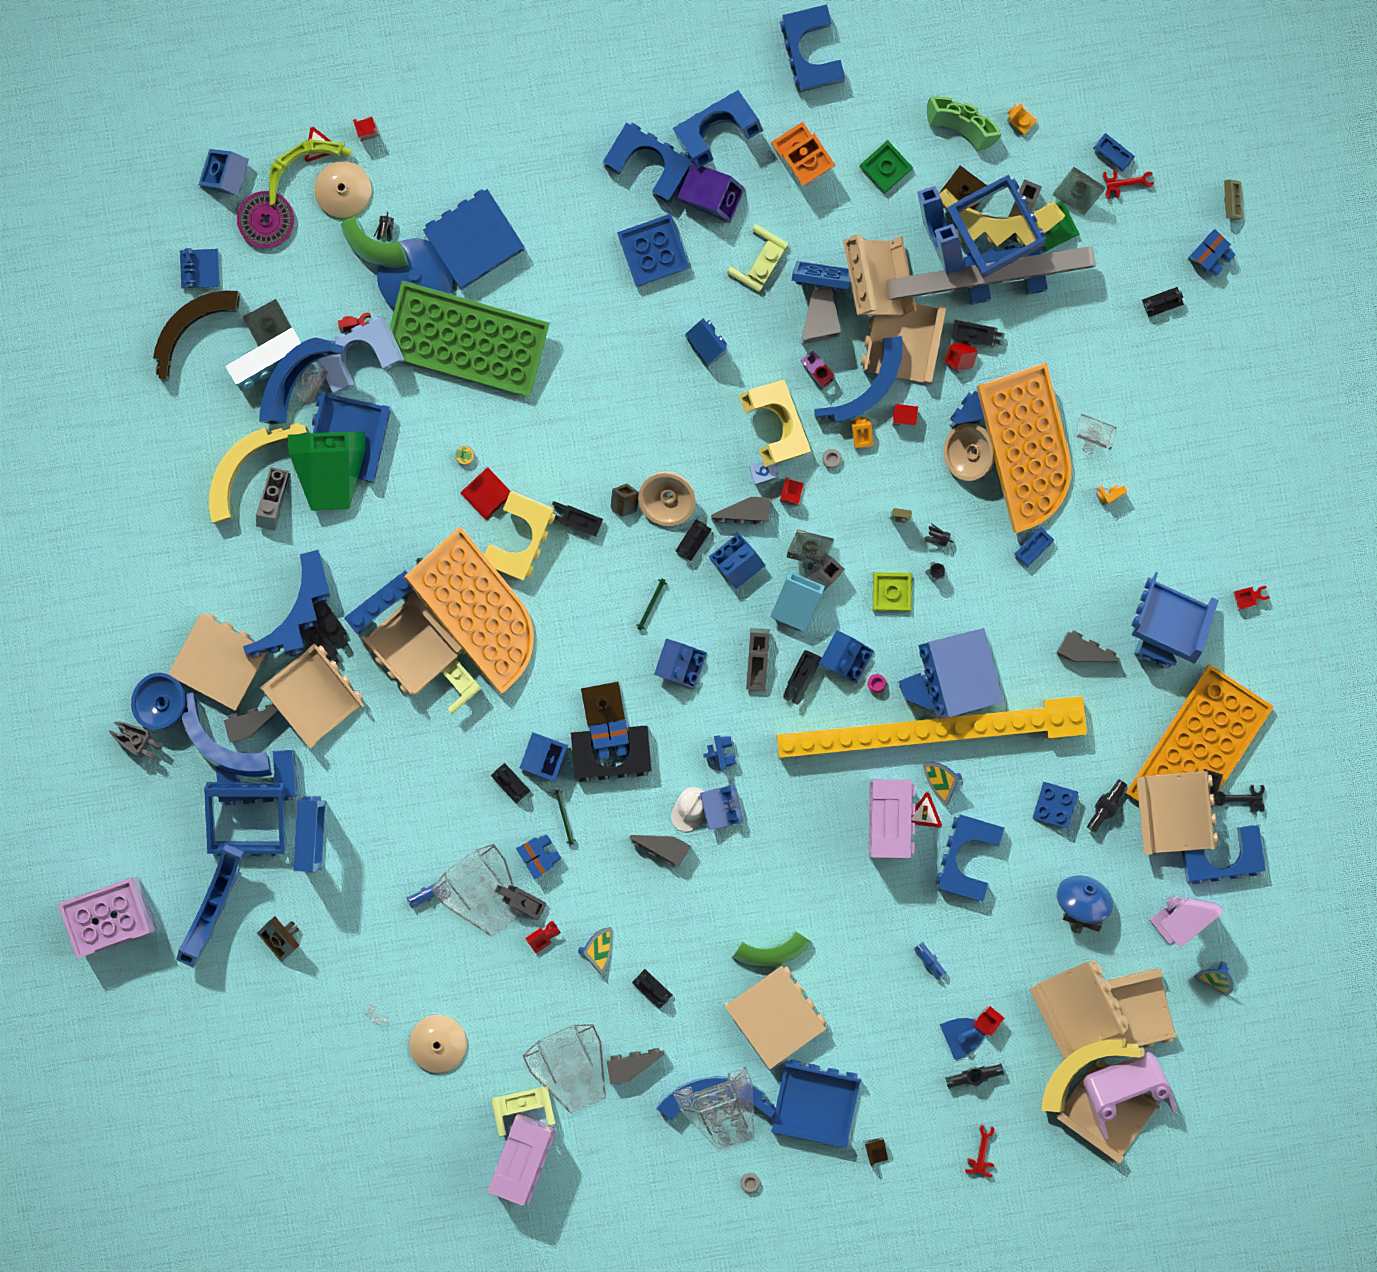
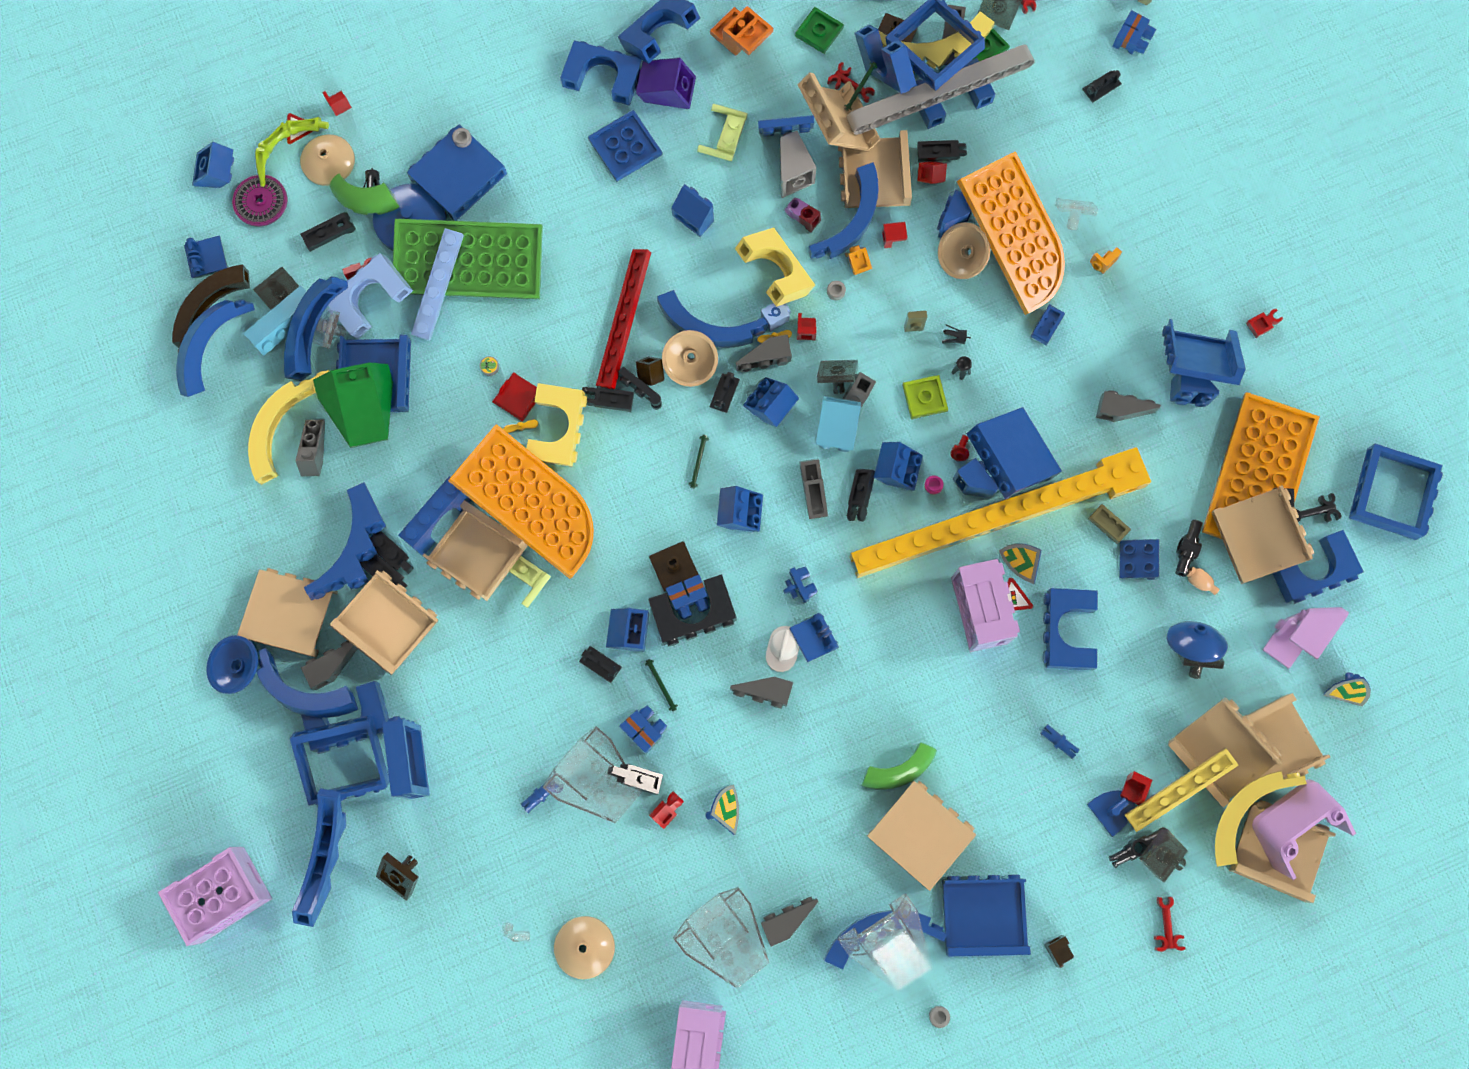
camera: 10 degrees left, 10 degrees down
(135, 740) = (217, 708): dark grey hinge -> none
(181, 362) = (195, 340): none -> blue arch
(329, 271) = (327, 231): none -> black plate
(430, 359) = (437, 284): none -> light blue plate
(483, 525) = (521, 426): none -> yellow piece
(487, 206) = (461, 137): none -> light grey tile
(519, 1103) = (683, 989): yellowish green plate -> none
(610, 438) = (623, 318): none -> red plate
(611, 518) = (640, 387): none -> black plate
(652, 988) = (789, 836): black hinge -> none
(676, 464) = (720, 336): none -> blue arch
(757, 492) = (762, 338): none -> yellow piece
(894, 224) = (842, 76): none -> red bar
(910, 656) = (959, 451): none -> red plate
(927, 231) = (859, 88): none -> dark green axle
(995, 1088) = (1164, 855): none -> clear smoke tile
(1028, 1033) = (1181, 790): none -> light yellow tile
(1037, 763) = (1109, 524): none -> olive plate
(1110, 840) = (1202, 580): none -> light nougat plant
(1298, 782) = (1365, 483): none -> blue window

